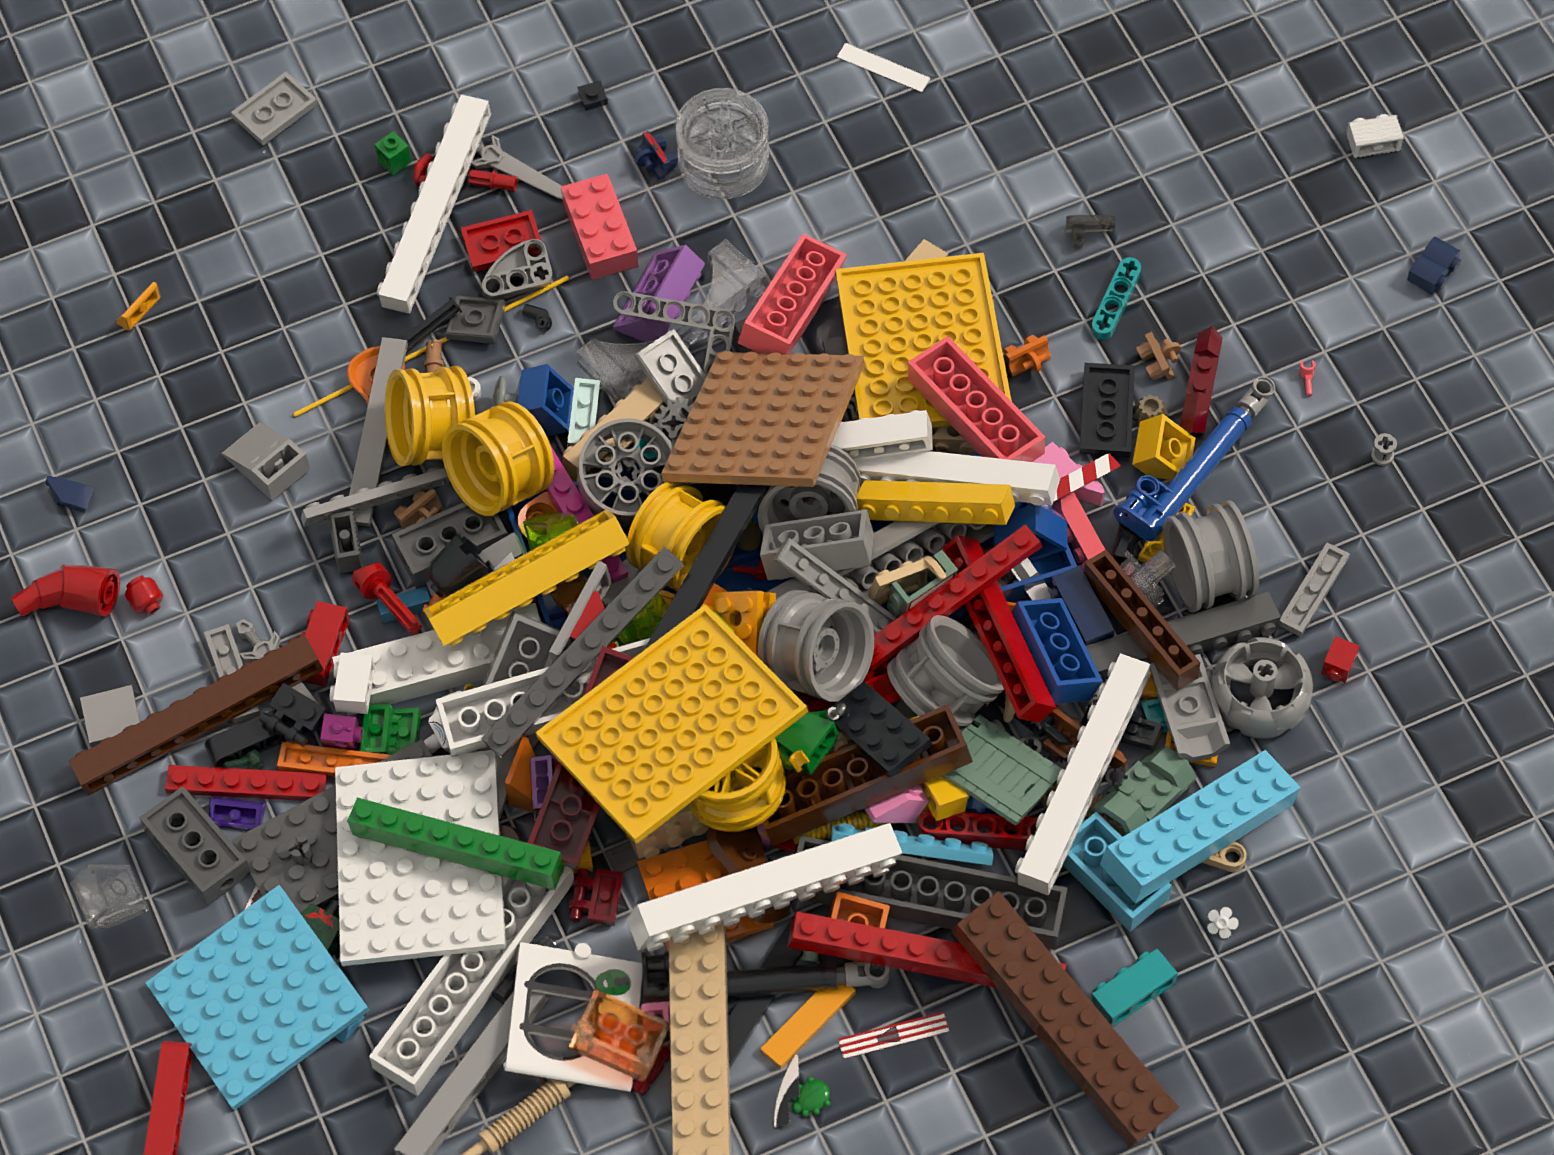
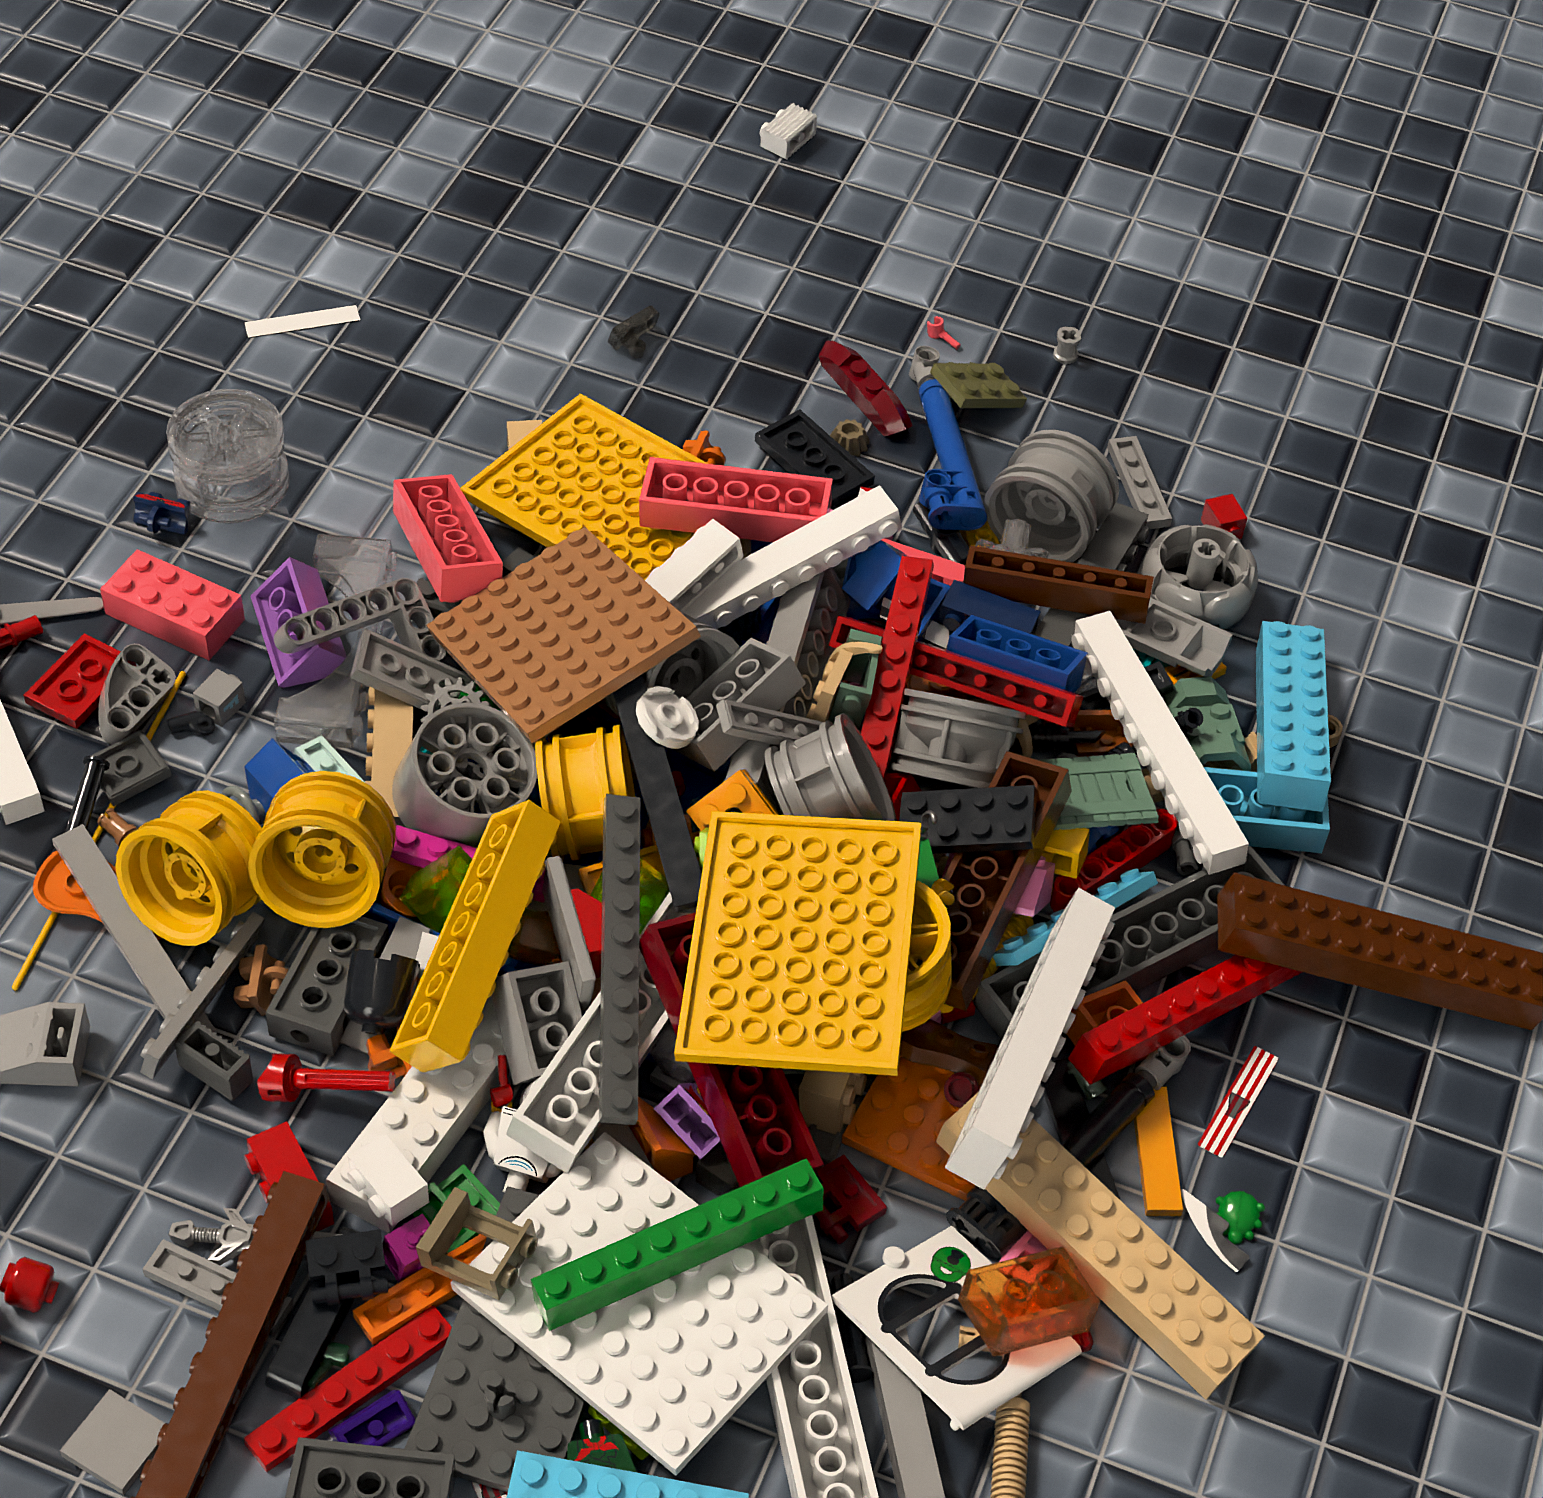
camera: 50 degrees left, 10 degrees down
(353, 735) = (447, 1224): none -> dark tan panel
(412, 599) = (344, 1059): dark azure slope -> none
(471, 682) = (502, 1094): none -> red hand
(568, 310) = (219, 696): none -> light grey brick
(592, 95) = (37, 503): black plate -> none
(753, 524) = (667, 717): none -> white tile
(936, 502) = (804, 590): yellow brick -> none
(1116, 298) = (717, 372): teal beam -> none
(1134, 987) = (1384, 878): teal brick -> none
(1152, 348) = (812, 387): medium nougat hips -> none
(1162, 447) = (895, 457): yellow slope -> none
(1222, 922) = (1381, 786): white plant -> none
(1277, 435) = (978, 385): none -> olive plate
(1434, 265) = (944, 193): dark blue brick -> none

